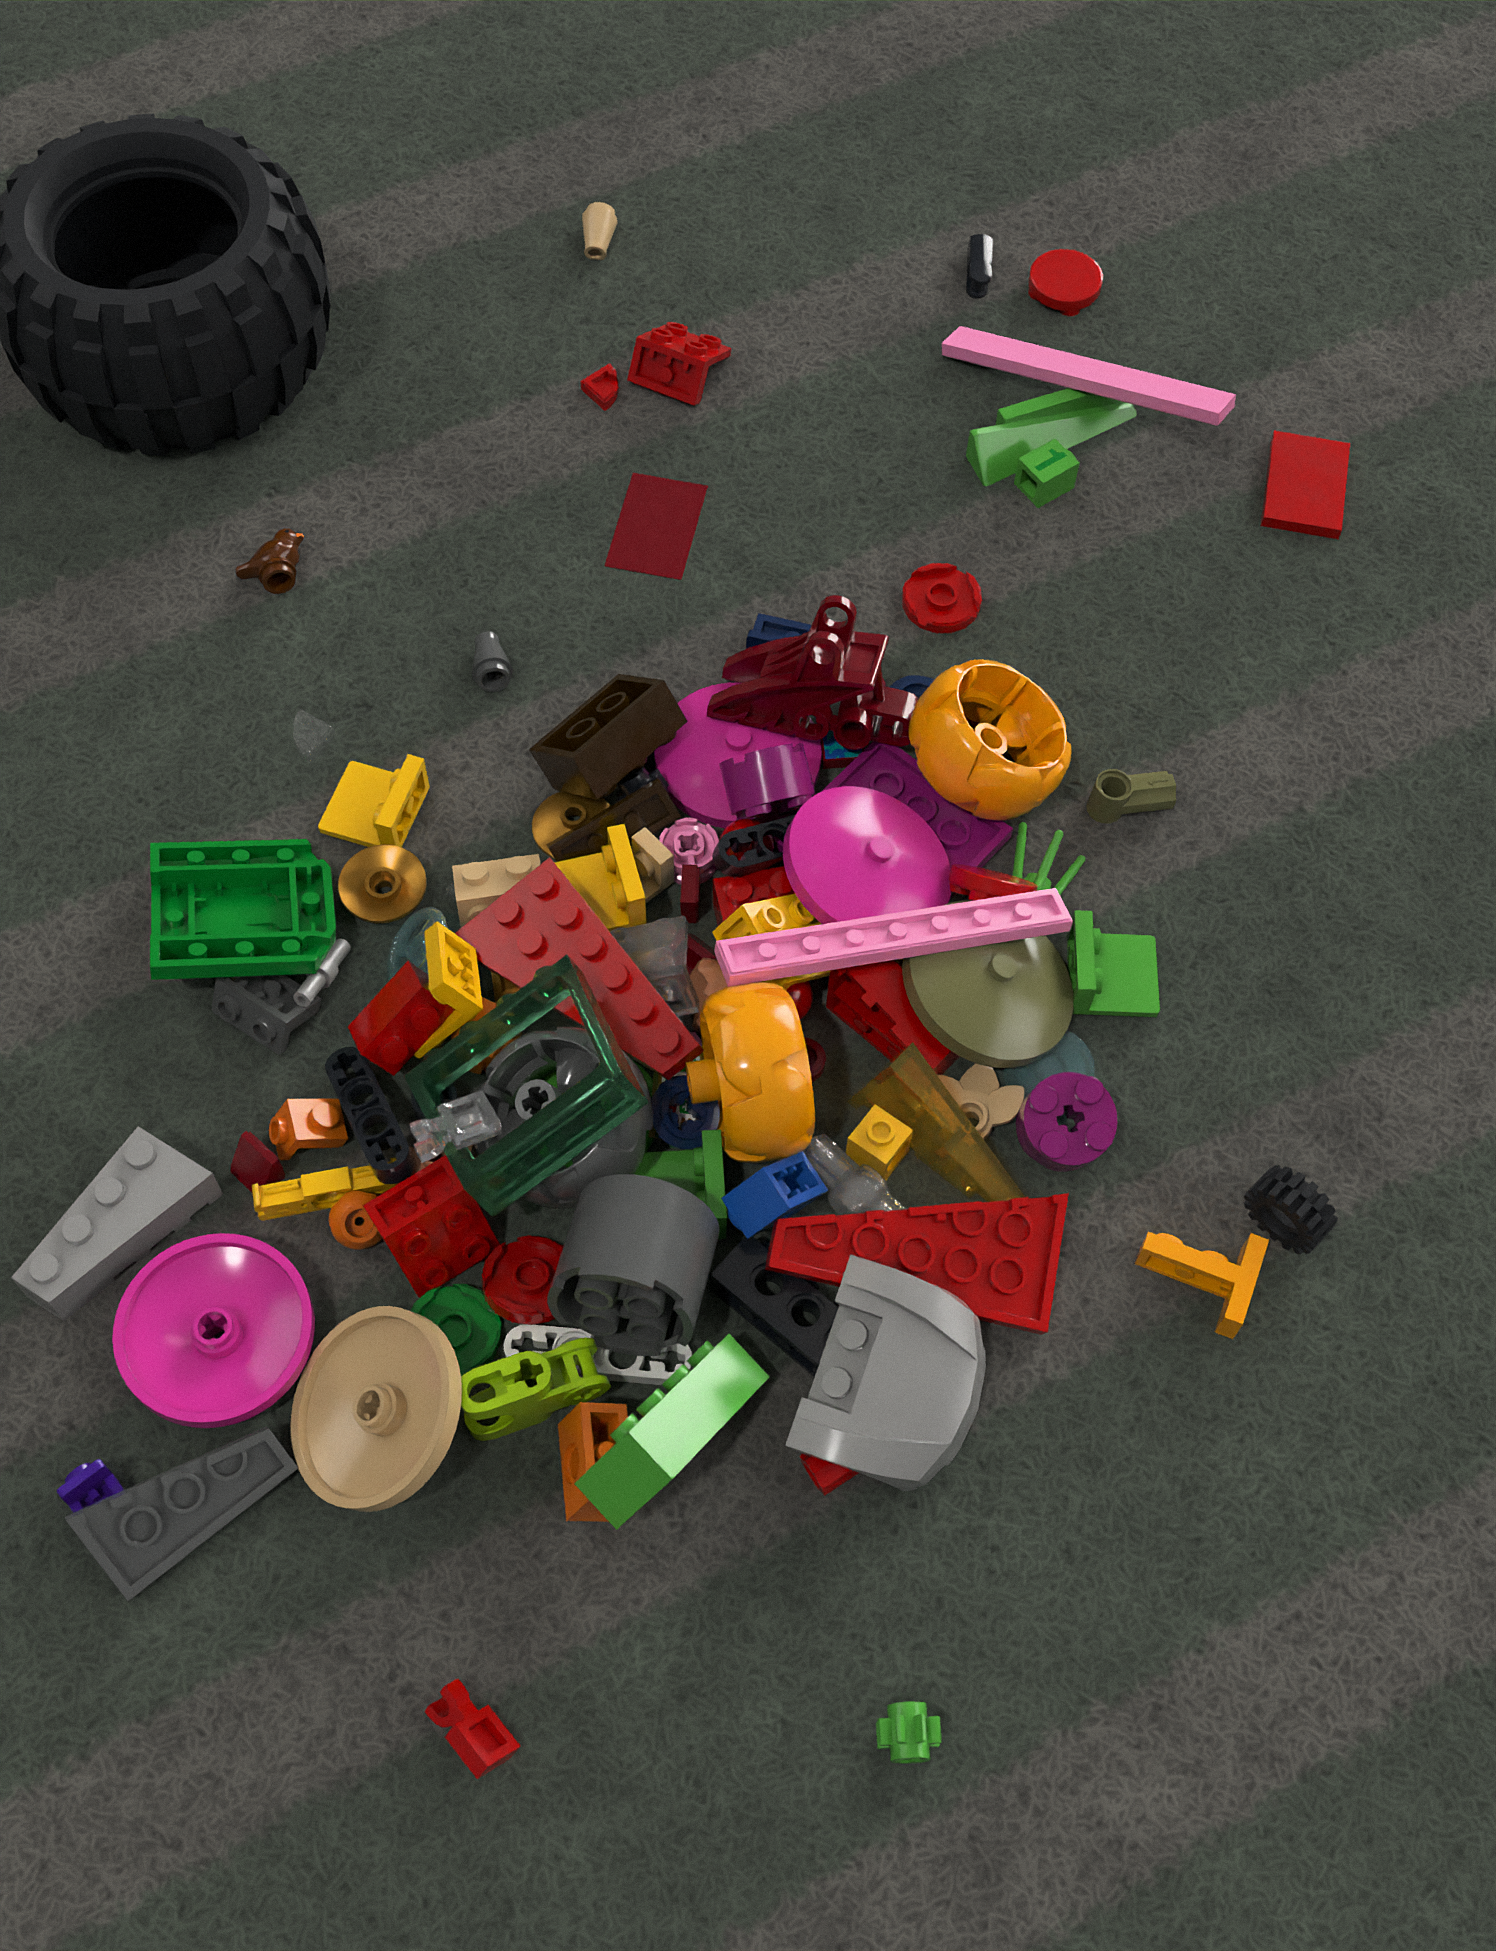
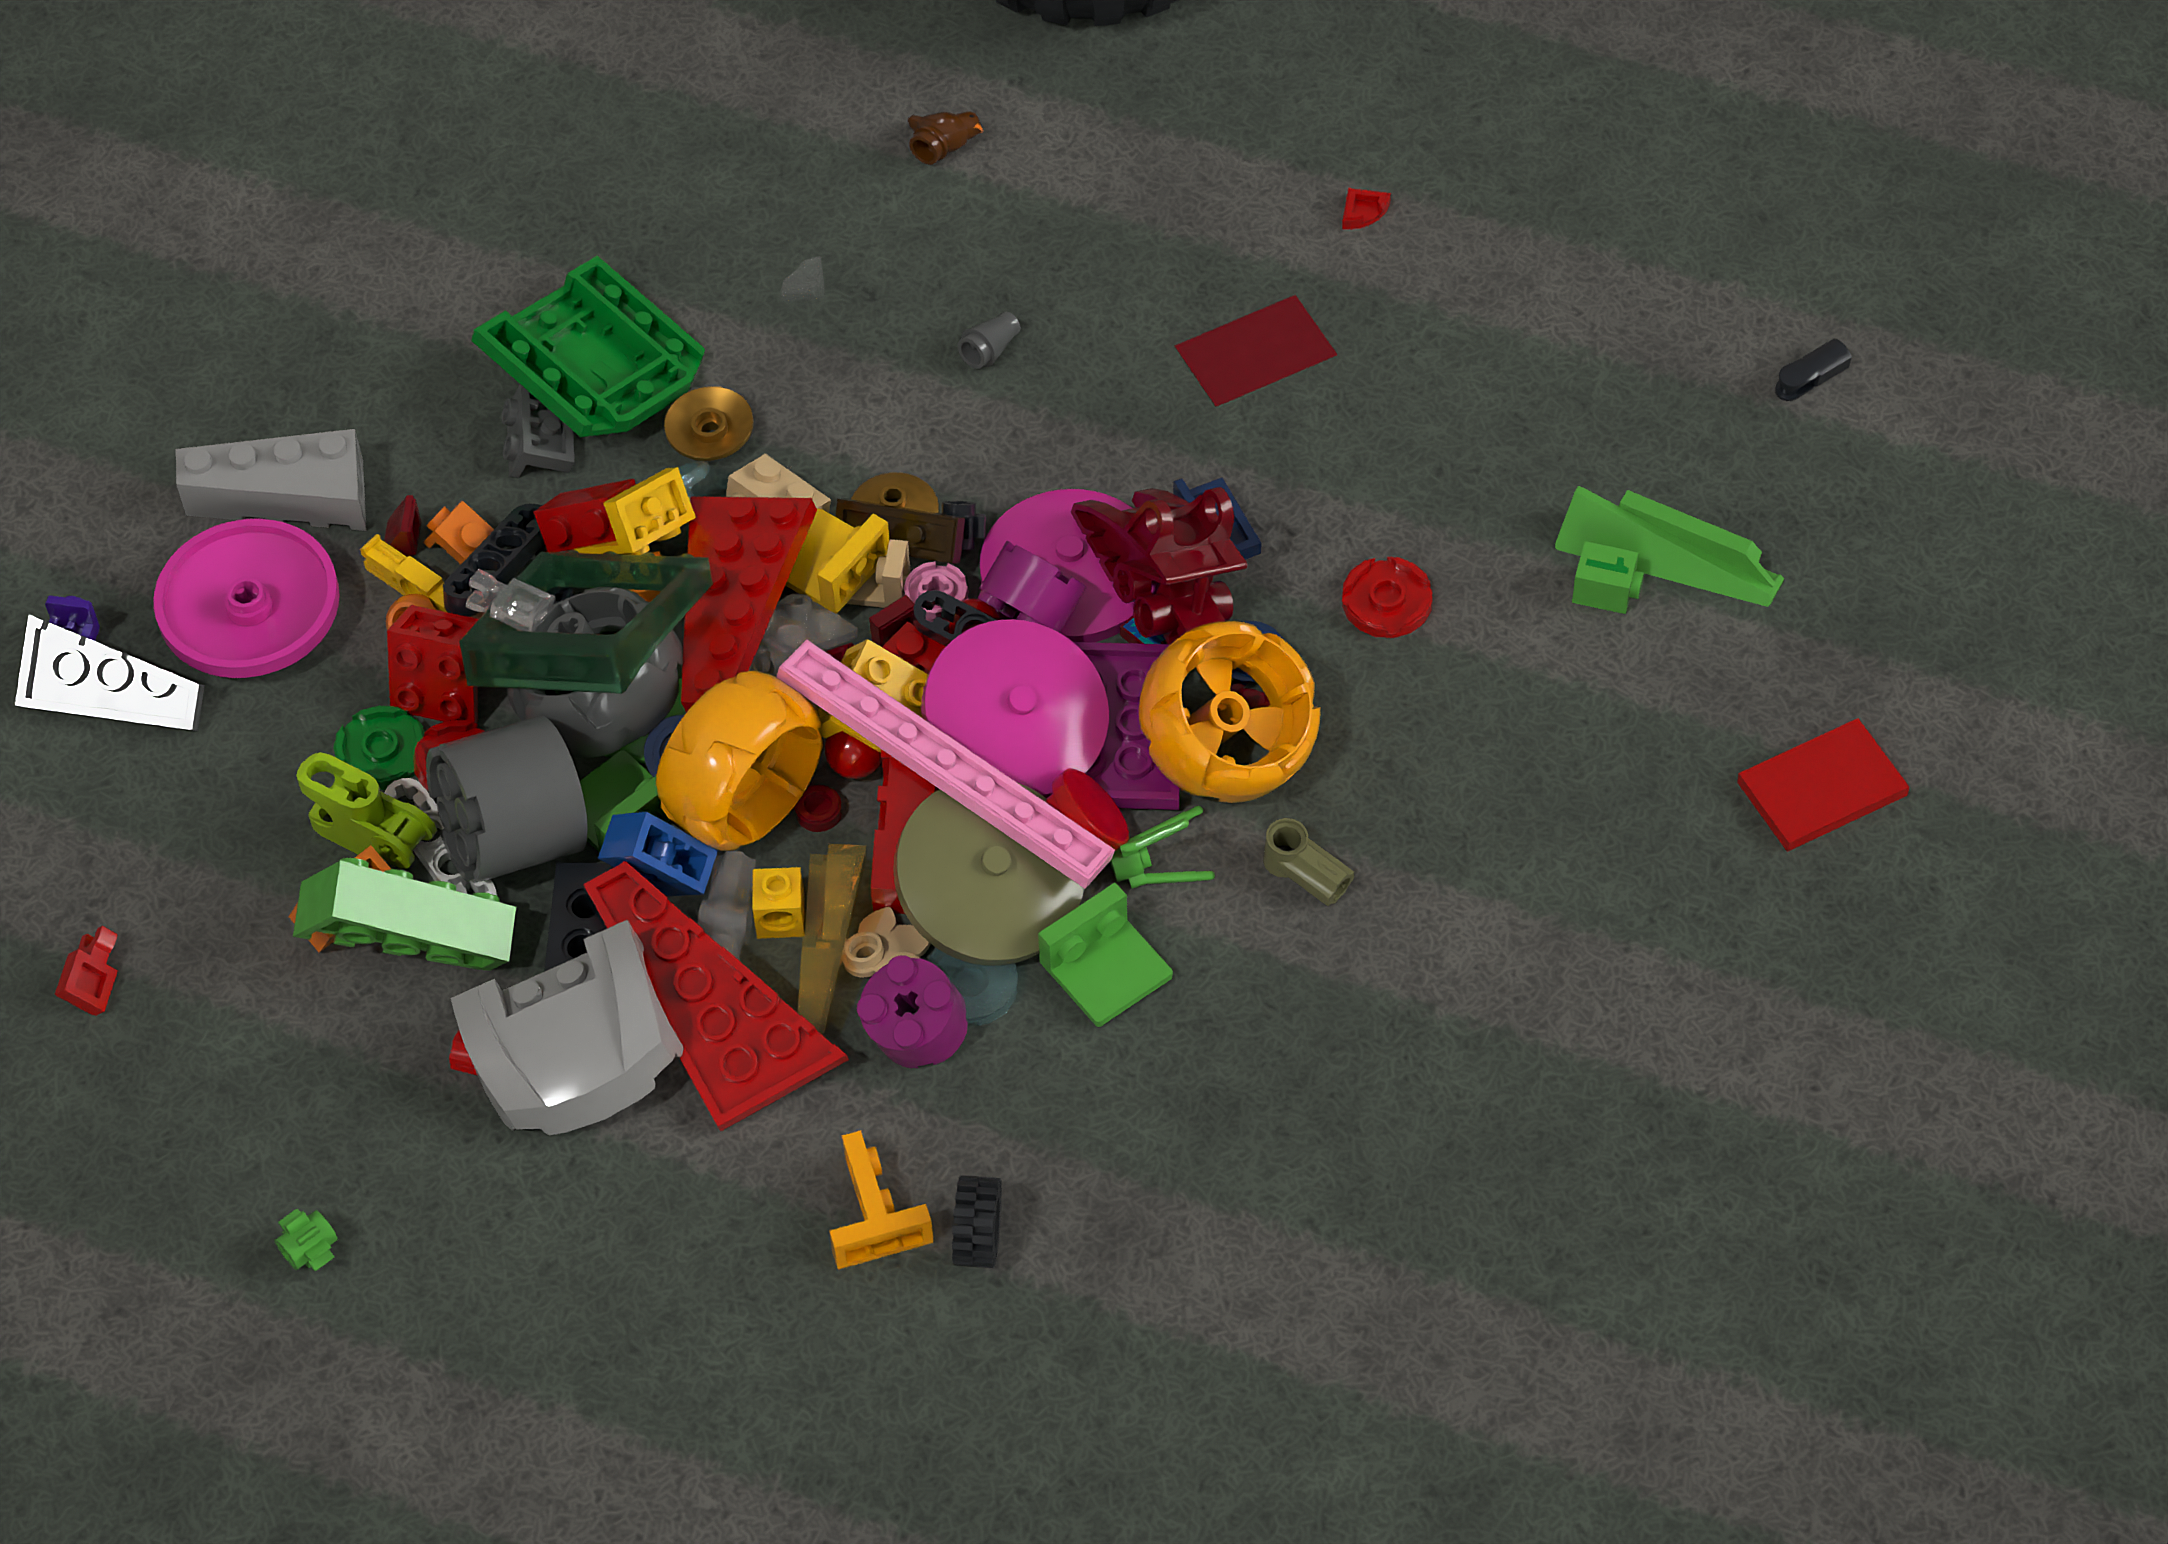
camera: 55 degrees right, 5 degrees down
(325, 974) = (595, 446): light grey bar -> none
(376, 804) = (779, 368): yellow bracket -> none
(376, 1409) = (264, 730): tan dish -> none
(598, 228) = (1533, 77): tan cone -> none
(609, 736) = (978, 461): dark brown brick -> none
(675, 361) = (1442, 226): red bracket -> none
(1065, 280) = (1867, 444): red tile -> none
(1089, 375) = (1737, 528): bright pink tile -> none

